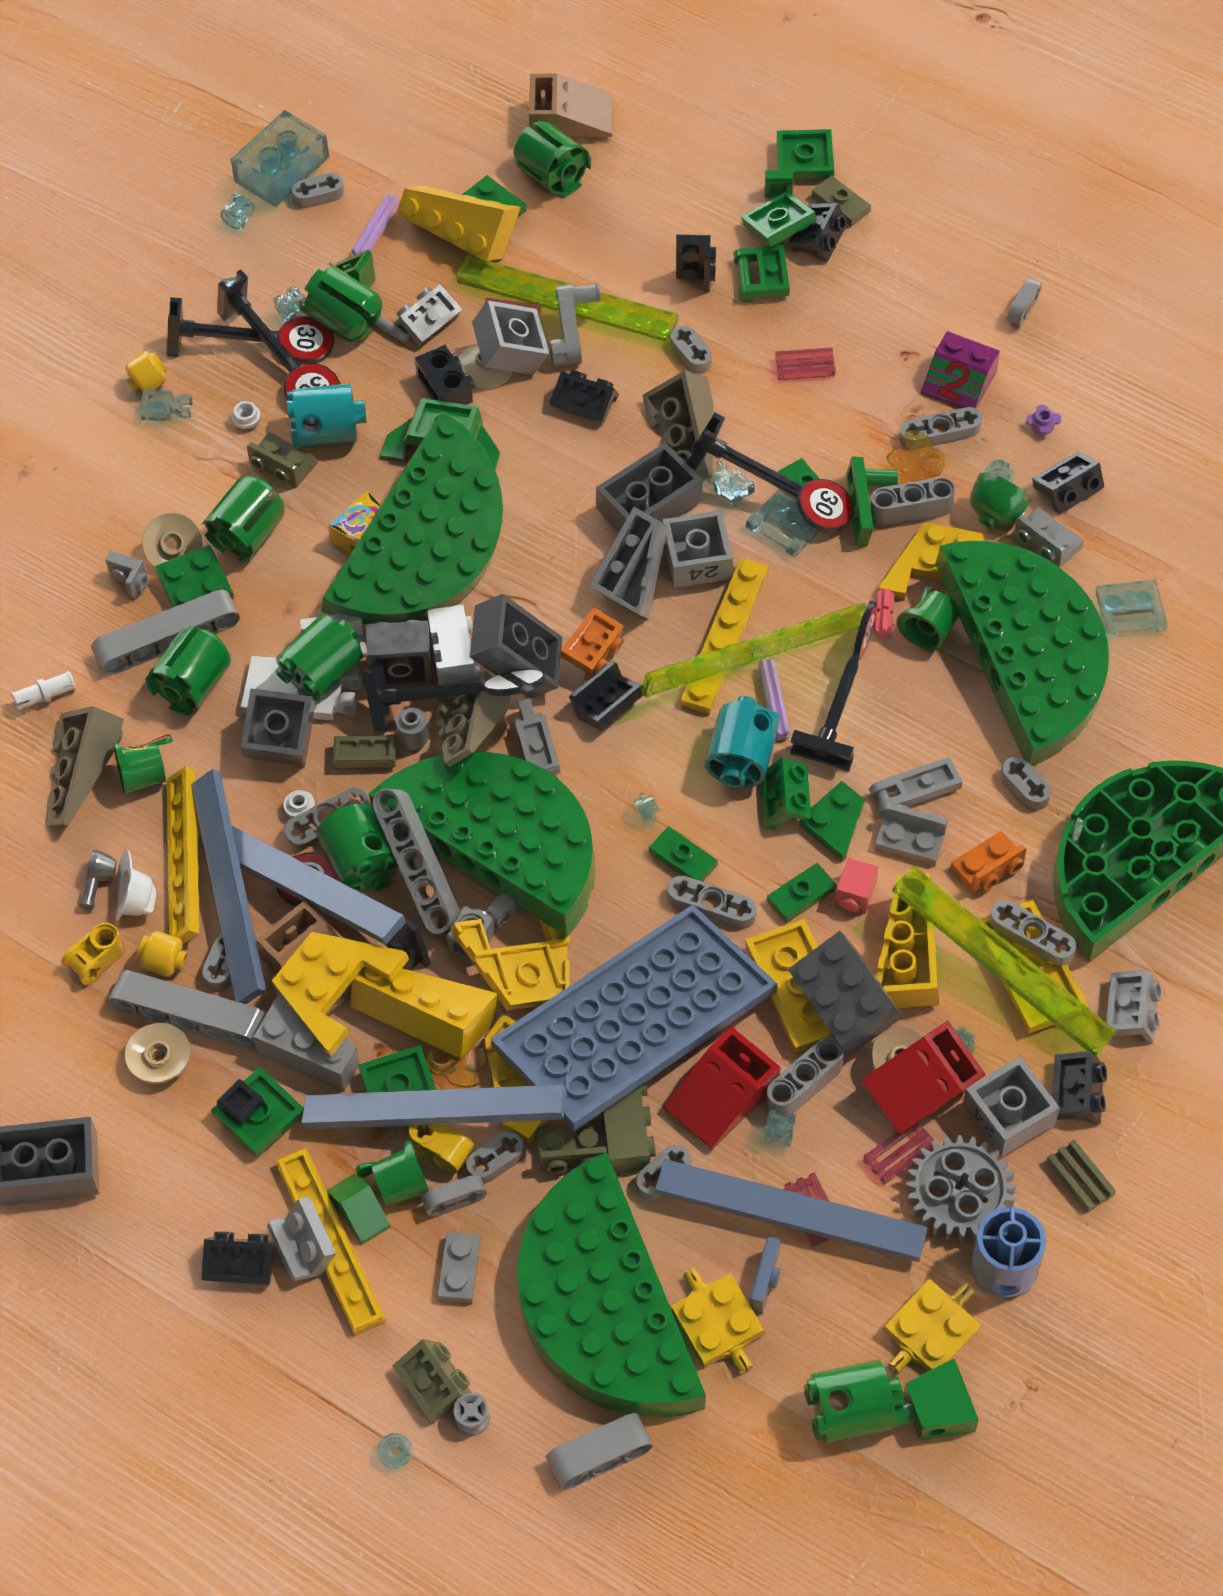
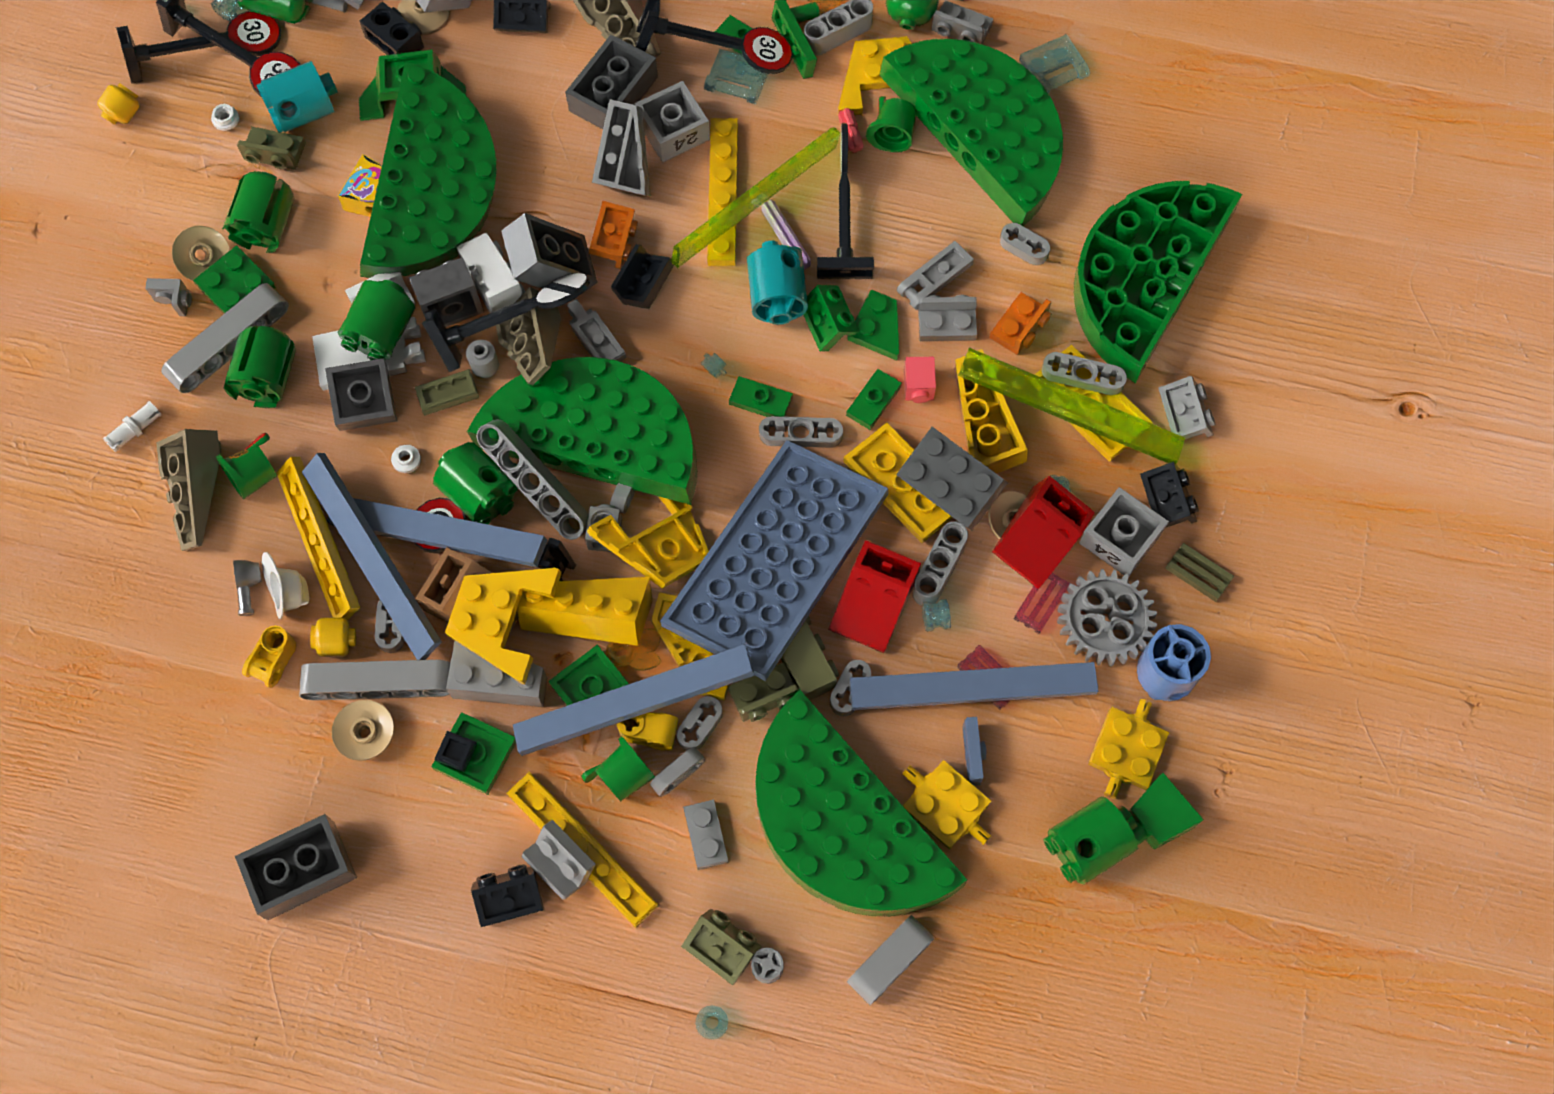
camera: 20 degrees left, 10 degrees up
(161, 404) = (143, 130): clear light blue plate -> none
(301, 818) = (413, 472): light grey beam -> none
(359, 1208) = (596, 810): green slope -> none
(731, 485) = (678, 56): clear light blue plate -> none

